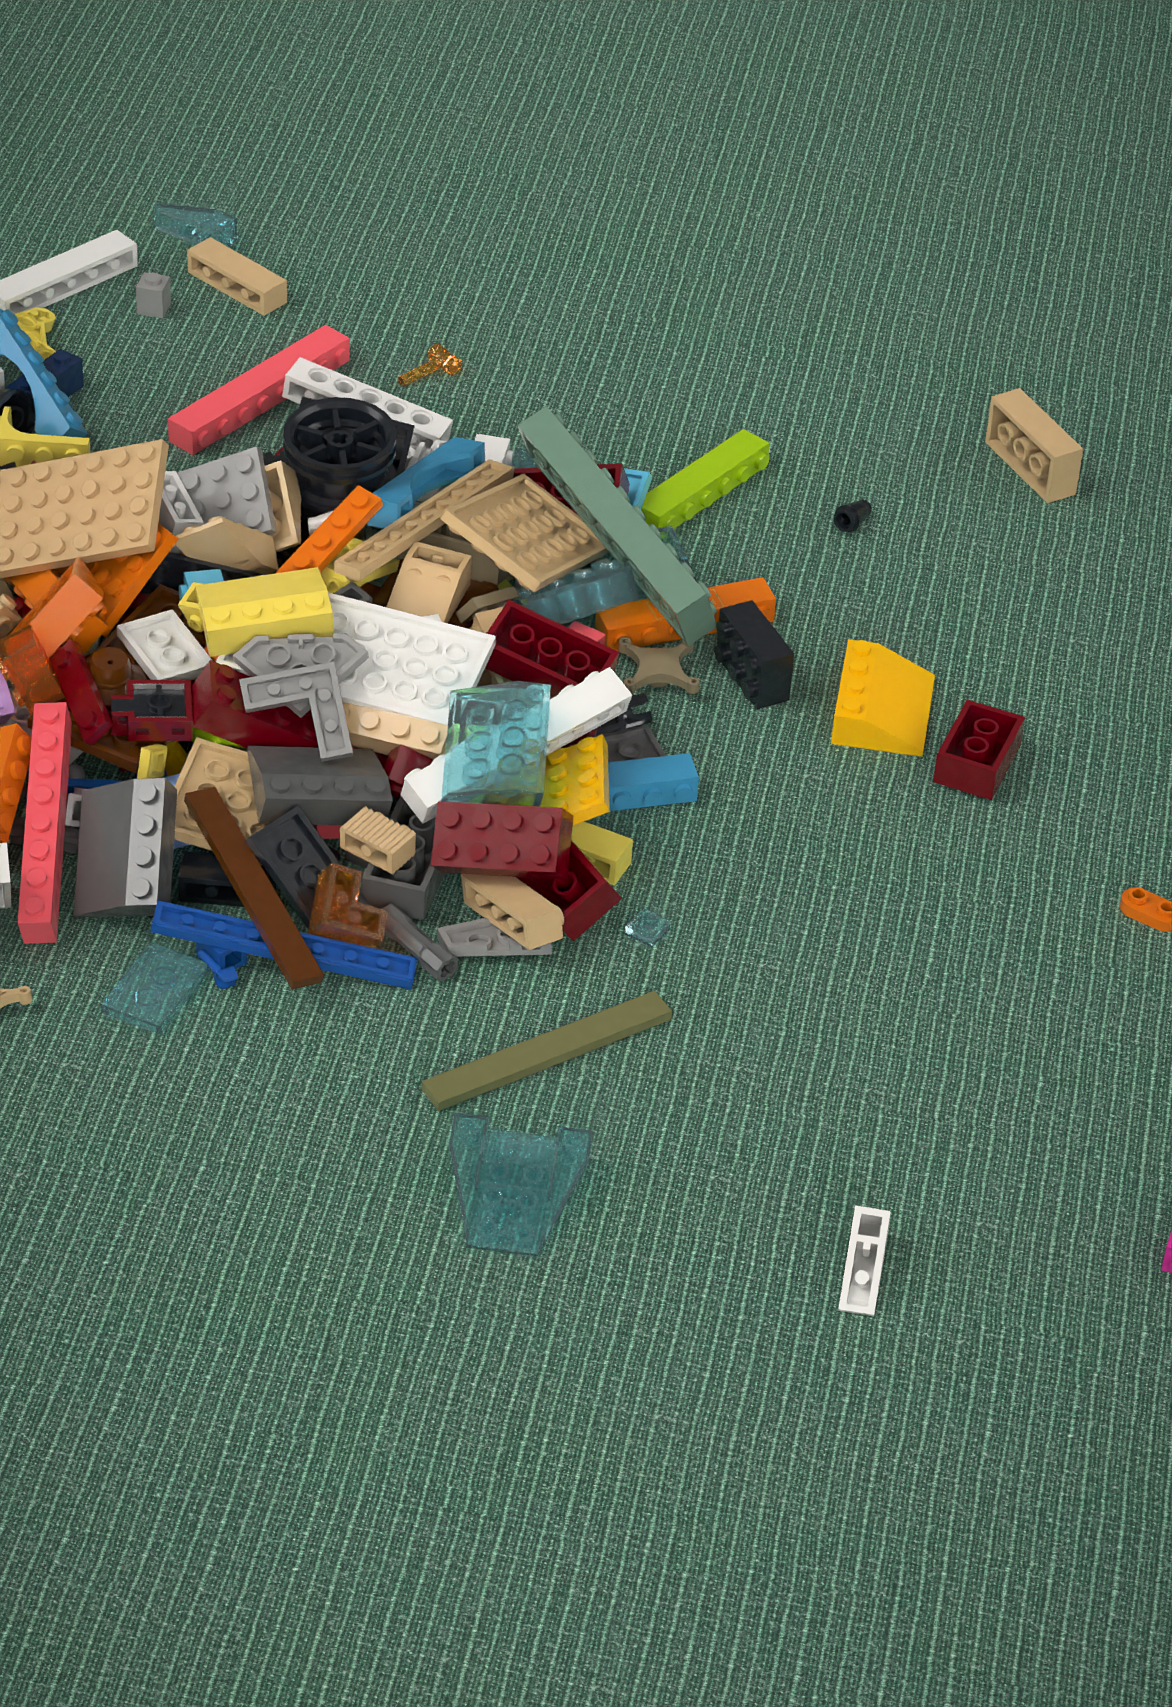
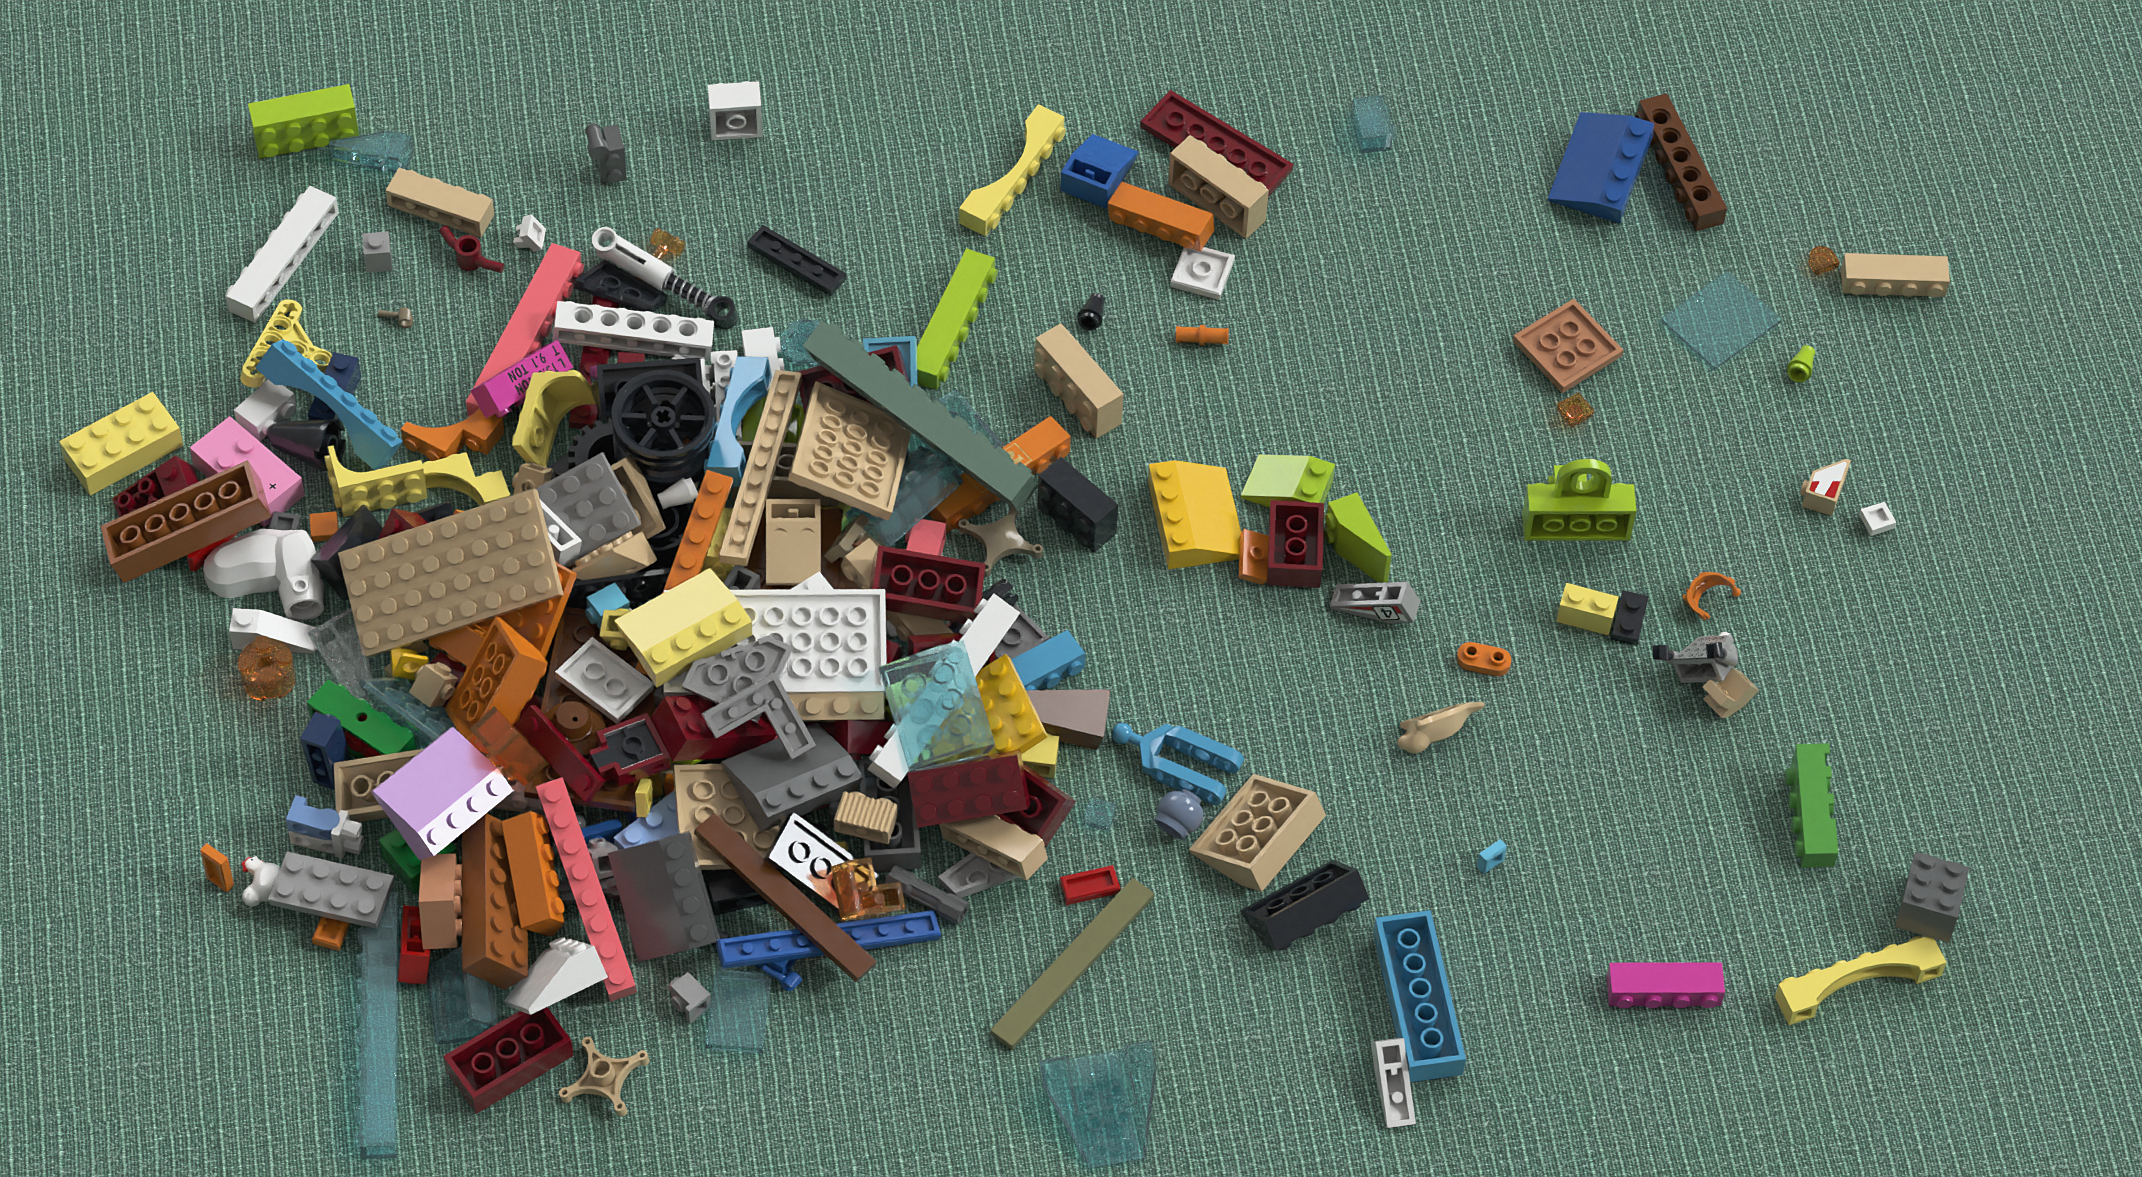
camera: 20 degrees left, 15 degrees up
(107, 958) = (689, 996): none -> light grey brick
(137, 182) = (303, 120): none -> lime brick
(148, 351) = (404, 316): none -> dark tan hand
(181, 450) = (439, 443): none -> orange arch
(231, 412) = (510, 385): none -> dark pink brick
(243, 318) = (469, 252): none -> dark red piece
(243, 428) = (545, 404): none -> light yellow bracket
(310, 318) = (530, 234): none -> white tile
(373, 373) = (620, 287): none -> black wing
(420, 272) = (607, 152): none -> dark grey hinge
(422, 378) = (662, 276): none -> piece
(564, 274) = (735, 110): none -> white brick
(566, 402) = (796, 260): none -> black plate
(602, 986) = (1089, 885): none -> red tile
(657, 826) = (1073, 714): none -> slope
(734, 944) = (1179, 813): none -> sand blue piece
(775, 889) = (1189, 744): none -> dark azure piece
(786, 407) = (986, 205): none -> light yellow arch
(807, 557) = (1078, 381): none -> tan brick
(820, 989) = (1259, 831): none -> tan slope
(841, 1069) = (1306, 904): none -> black slope
(910, 408) = (1096, 170): none -> blue slope
(924, 754) = (1253, 556): none -> orange plate
(931, 1188) = (1419, 995): none -> dark azure brick
(961, 561) = (1202, 335): none -> orange pin
(962, 456) = (1161, 216): none -> orange brick
(987, 514) = (1202, 272): none -> white tile
(1006, 692) = (1288, 479): none -> lime slope
(1049, 758) = (1357, 537): none -> lime slope
(1053, 825) = (1377, 601): none -> light grey slope
(1067, 948) = (1435, 726): none -> tan animal
(1079, 1084) = (1491, 856): none -> medium azure tile
(1097, 448) = (1177, 118): none -> dark red plate

